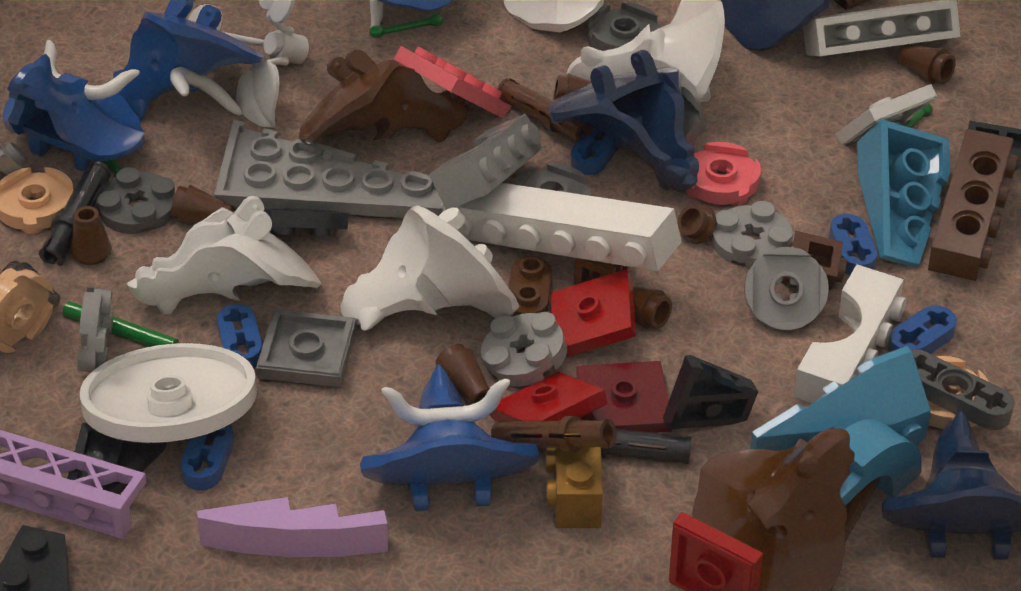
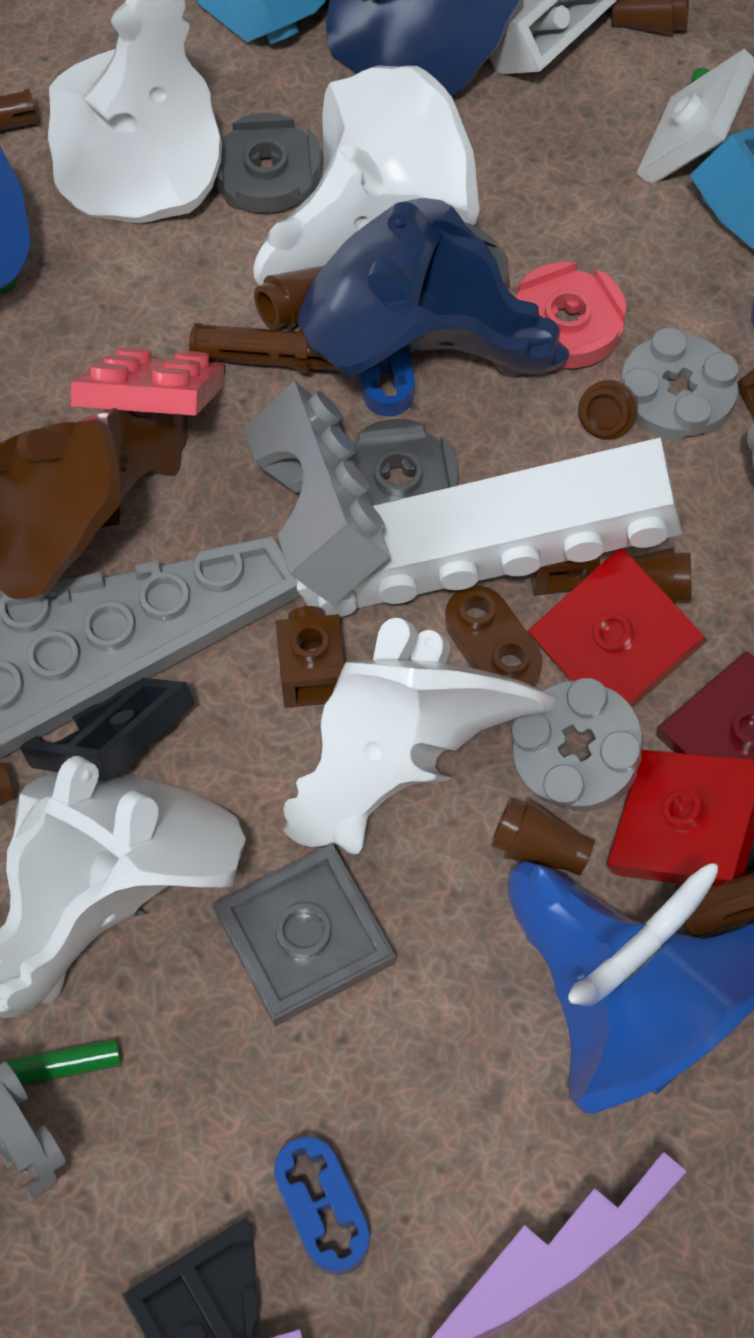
camera: 35 degrees left, 20 degrees up
(168, 392) = (204, 1162): white dish -> none
(247, 336) = (208, 964): blue beam -> none

